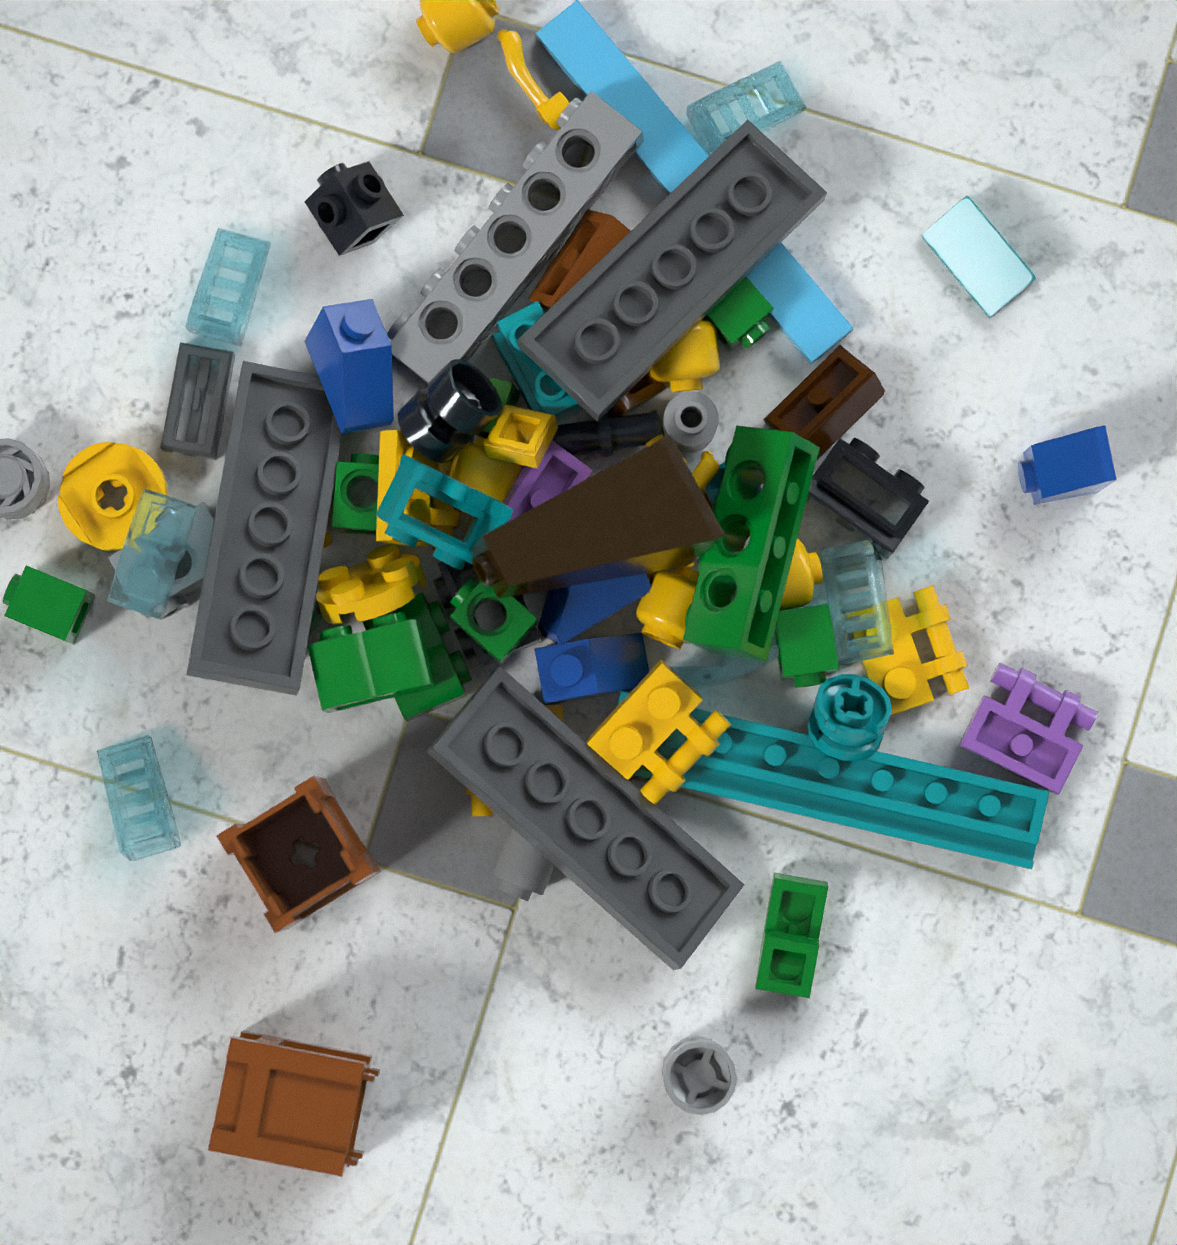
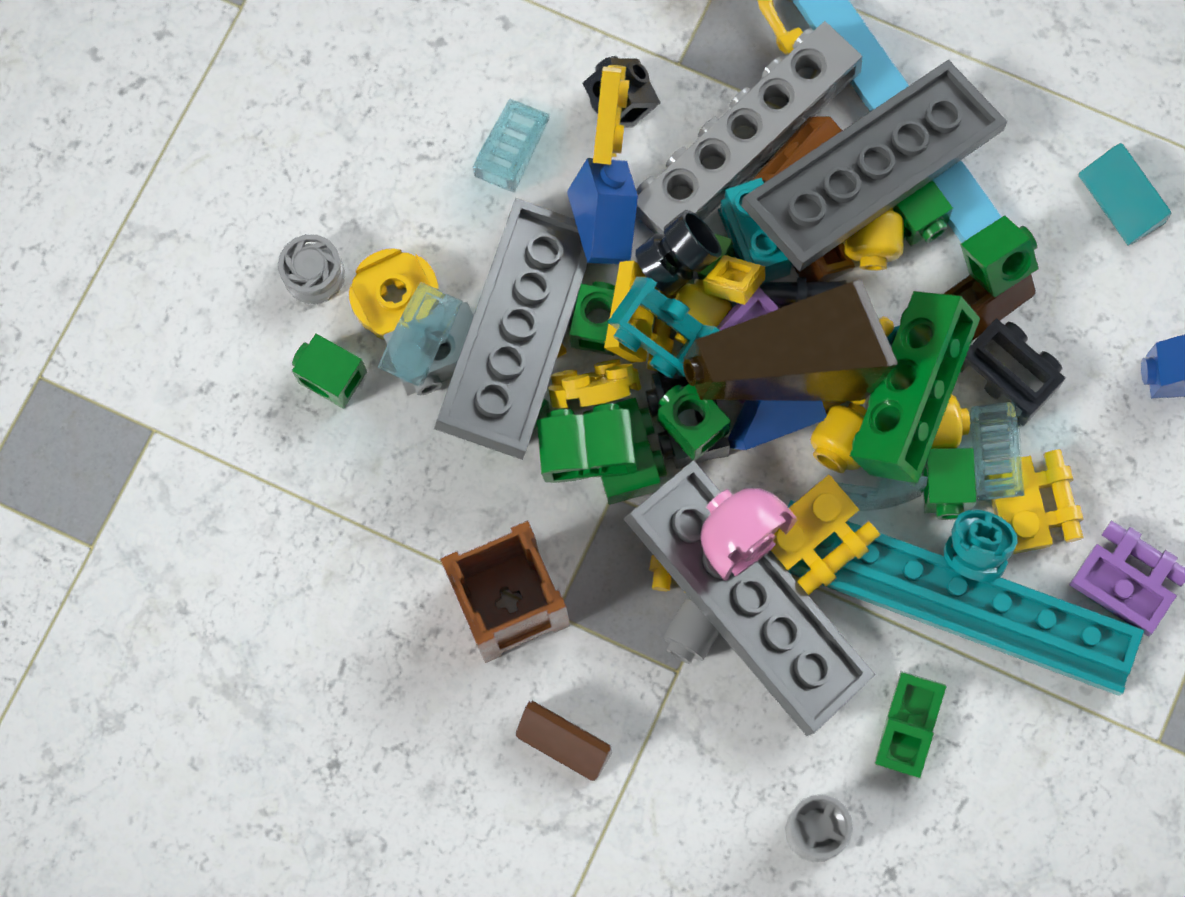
camera: 15 degrees right, 10 degrees down
(149, 843) = (382, 566): clear light blue slope -> none
(190, 445) = (462, 263): dark grey tile -> none
(291, 1103) = (468, 800): dark orange container -> none
(344, 261) = (611, 101): none -> yellow plate
(392, 1010) = (563, 741): none -> reddish brown slope
(566, 748) = (743, 528): none -> bright pink cylinder
(591, 667) = (772, 470): blue slope -> none
(690, 439) = (884, 283): light grey brick -> none
(706, 128) = (910, 54): clear light blue slope -> none
(837, 359) = (1000, 255): none -> green brick

